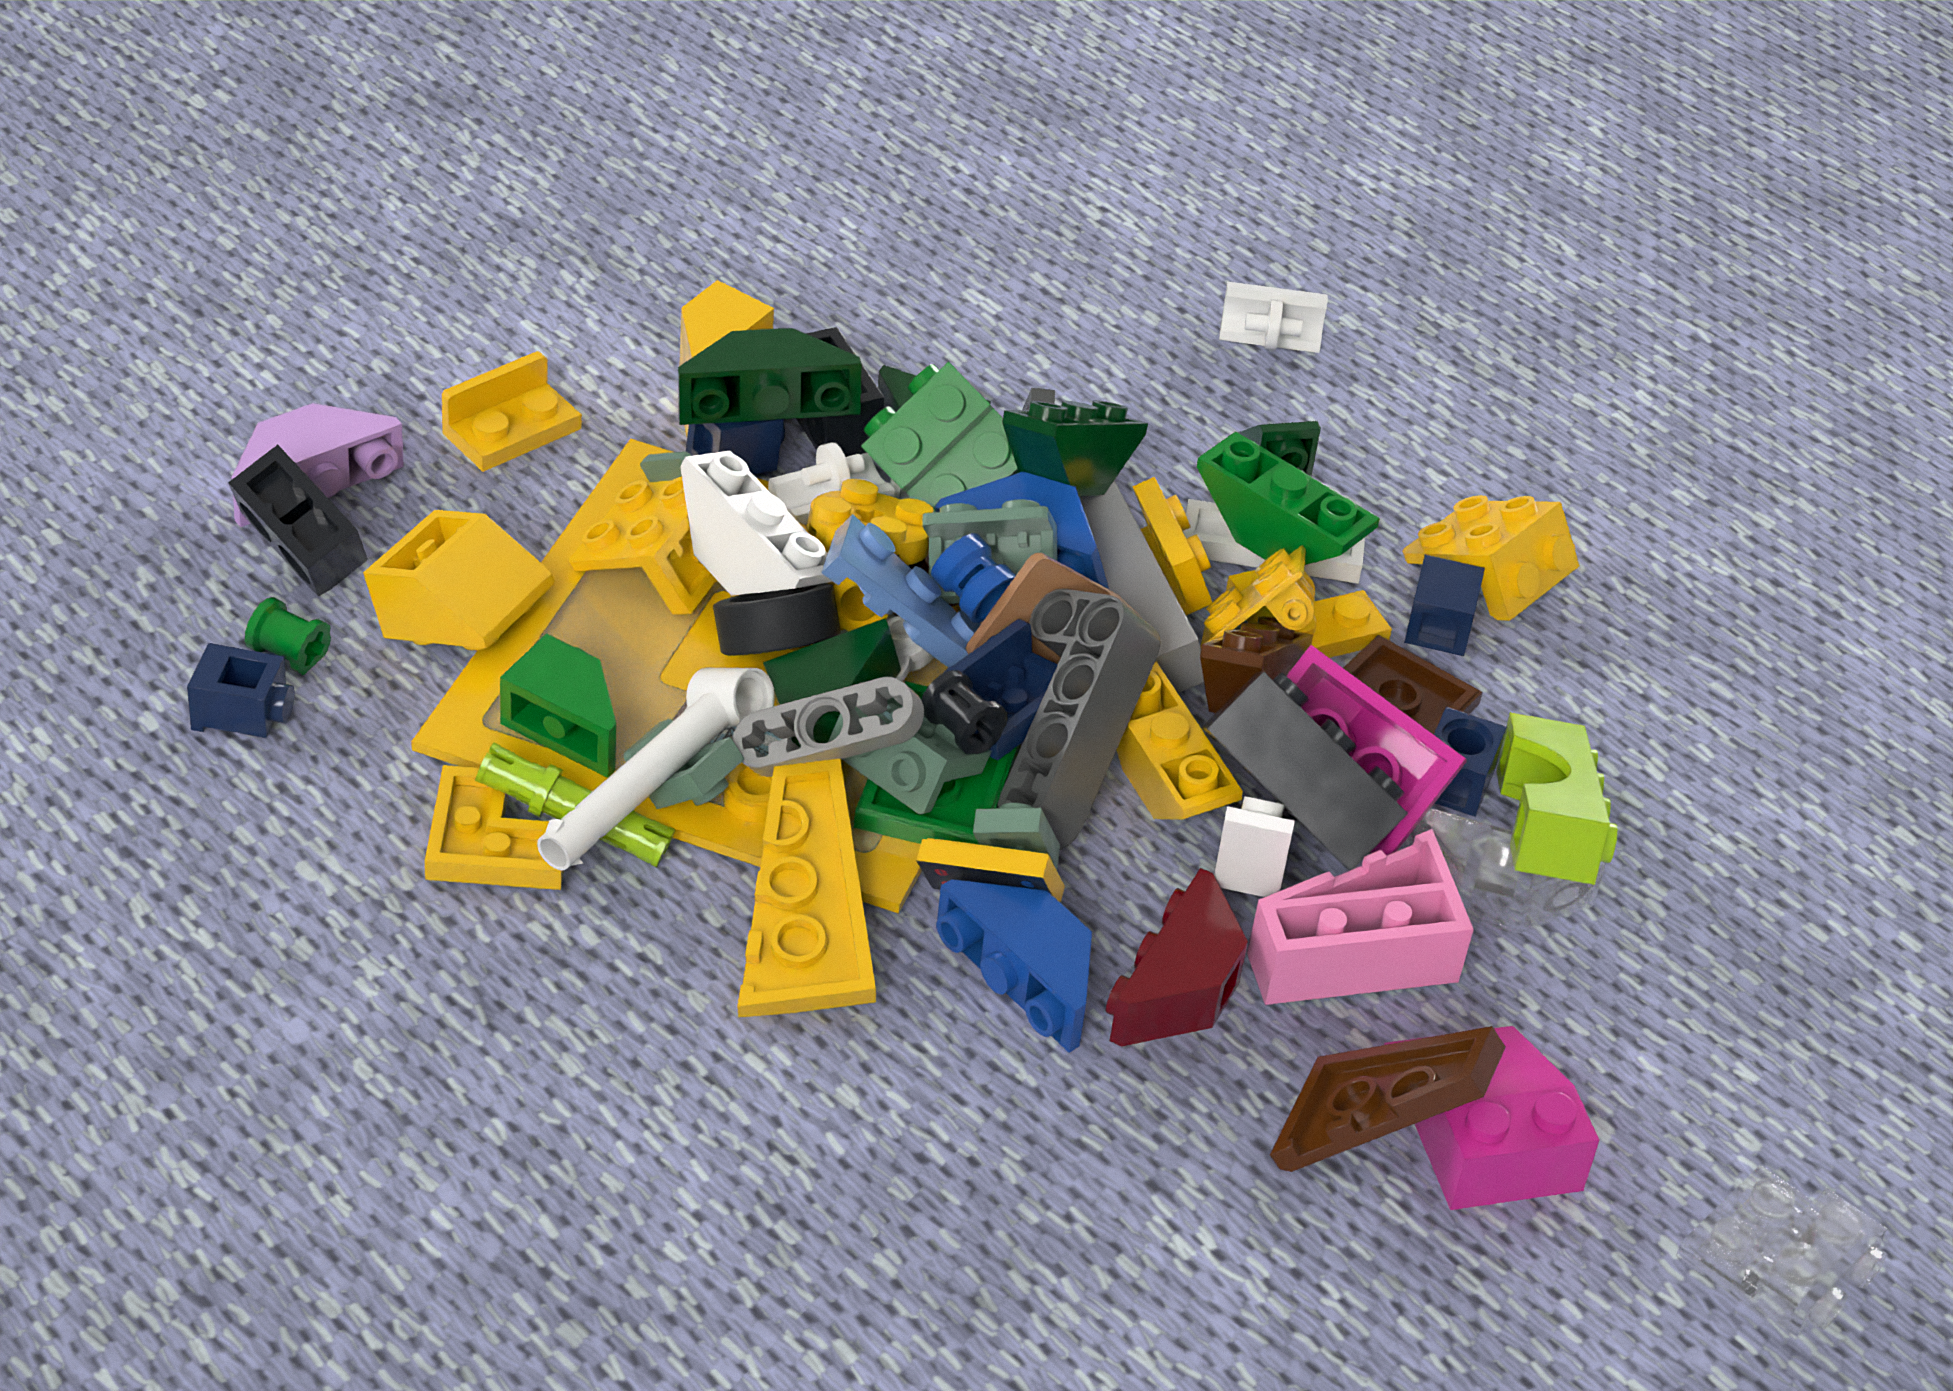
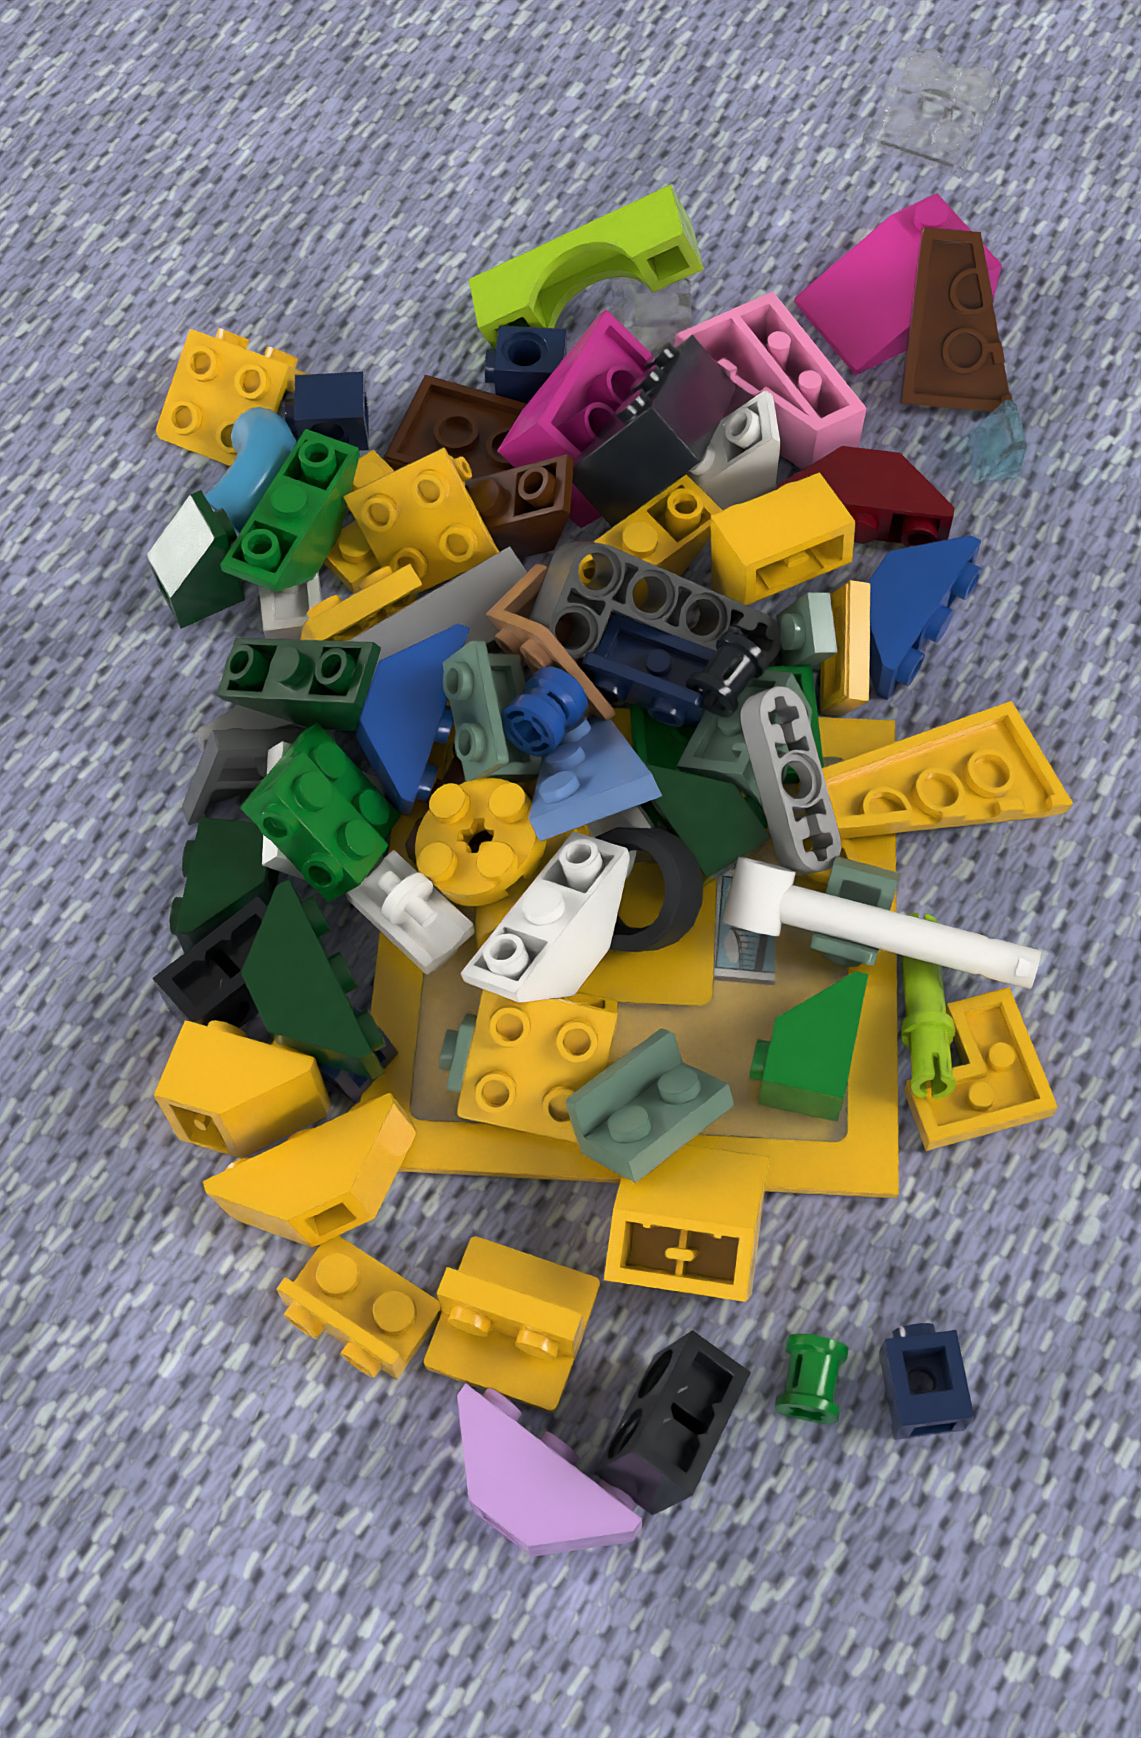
camera: 100 degrees left, 20 degrees up
(447, 474) = (511, 1323): none -> yellow bracket
(569, 574) = (645, 1107): none -> sand green bracket
(620, 398) = (321, 1176): none -> yellow slope
(1123, 831) = (779, 540): none -> yellow slope
(1222, 1120) = (998, 445): none -> clear light blue slope
(1402, 531) = (262, 447): none -> dark azure cylinder

